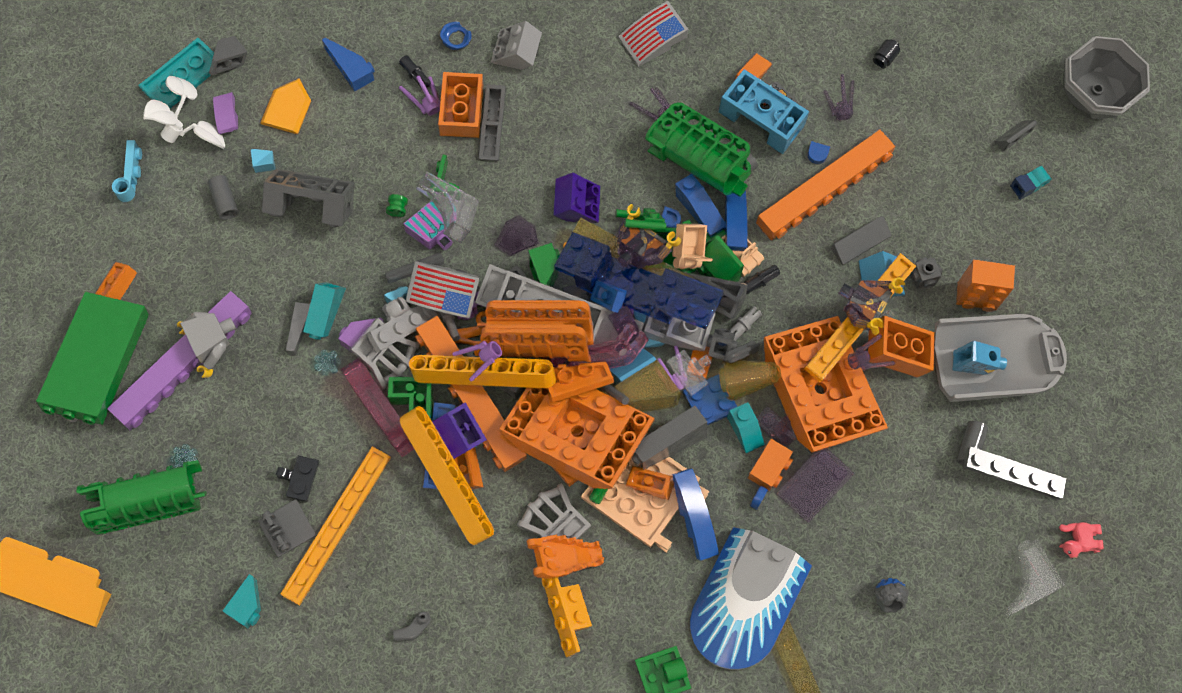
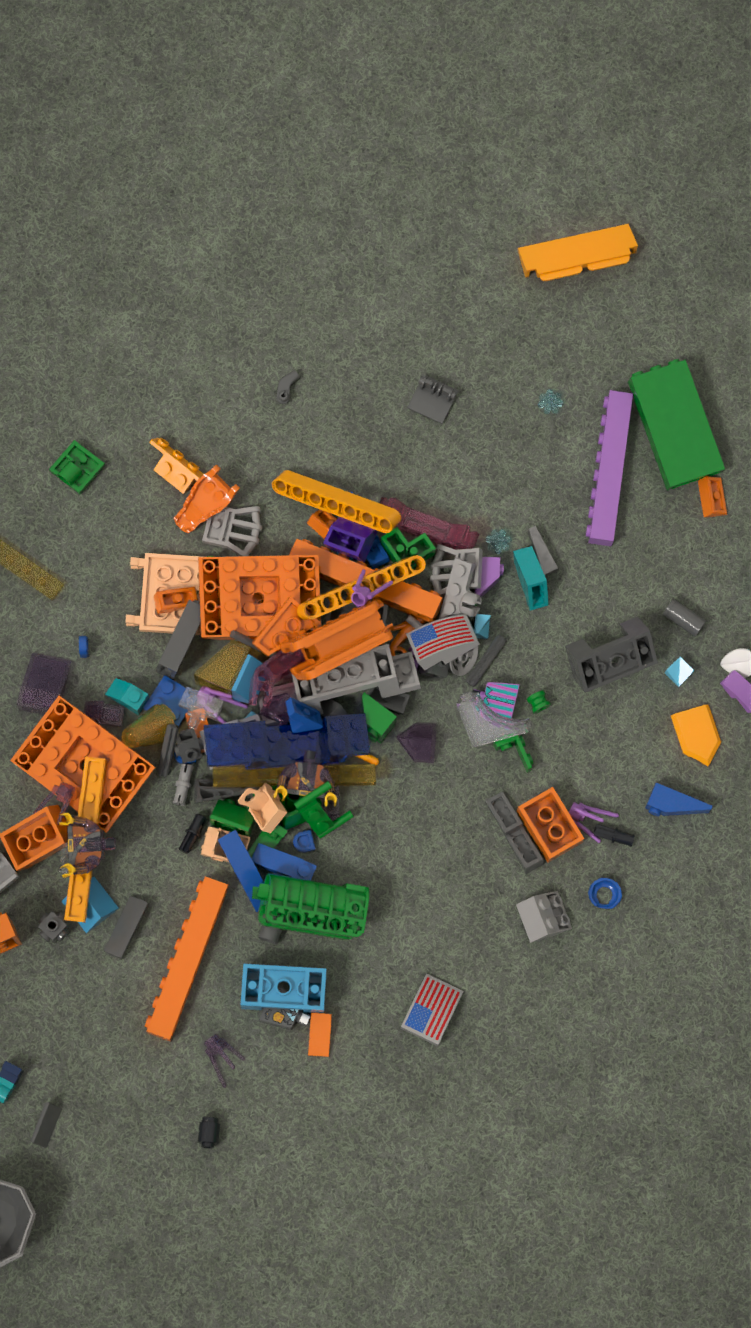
camera: 145 degrees right, 5 degrees up
(141, 498) = (554, 348): green piece -> none
(206, 338) = (601, 489): light grey torso -> none
(245, 603) = (420, 326): teal slope -> none
(300, 478) = (450, 440): black plate -> none
(335, 526) = (398, 425): light orange tile -> none
(576, 199) = (392, 804): dark purple slope -> none
(661, 99) = (371, 937): plant -> none
(696, 515) = (125, 596): blue slope -> none
(746, 600) = (46, 557): windscreen -> none
(770, 464) = (89, 676): orange brick -> none
(818, 152) = (213, 989): blue tile -> none

